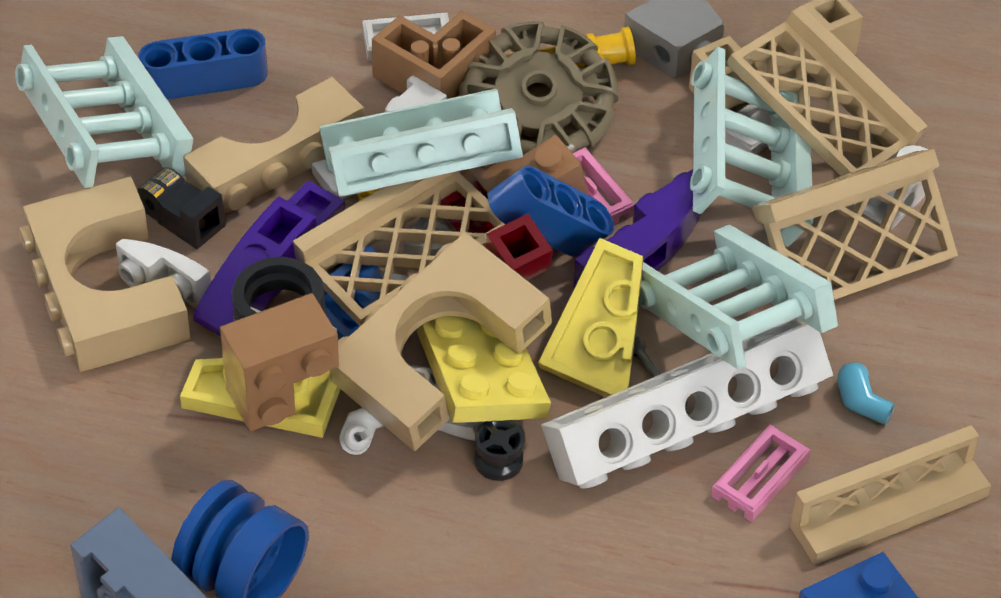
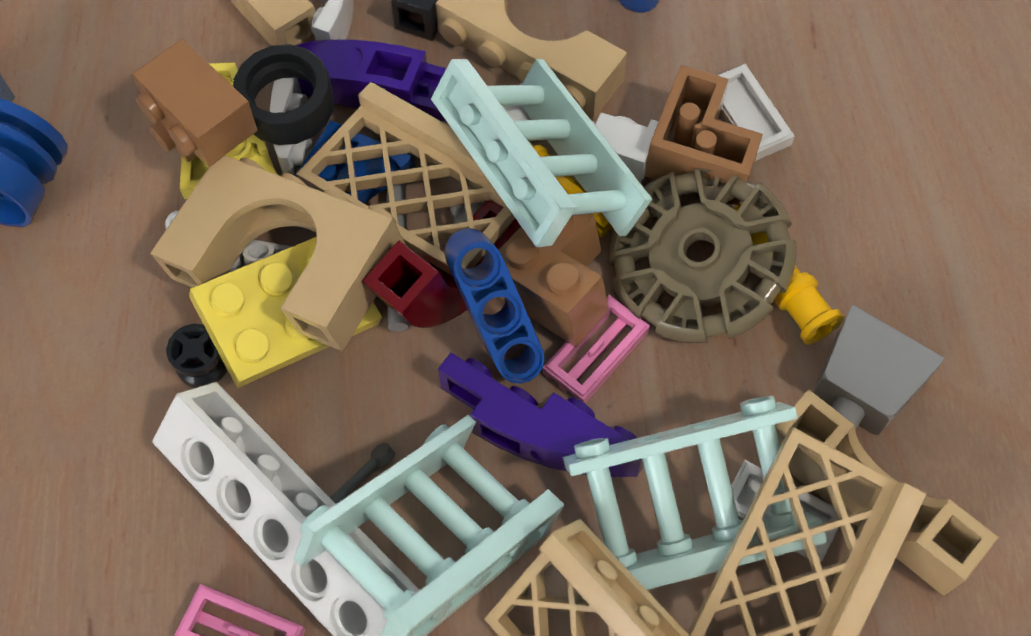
camera: 75 degrees right, 15 degrees up
(599, 323) = (376, 404): light yellow wing -> none

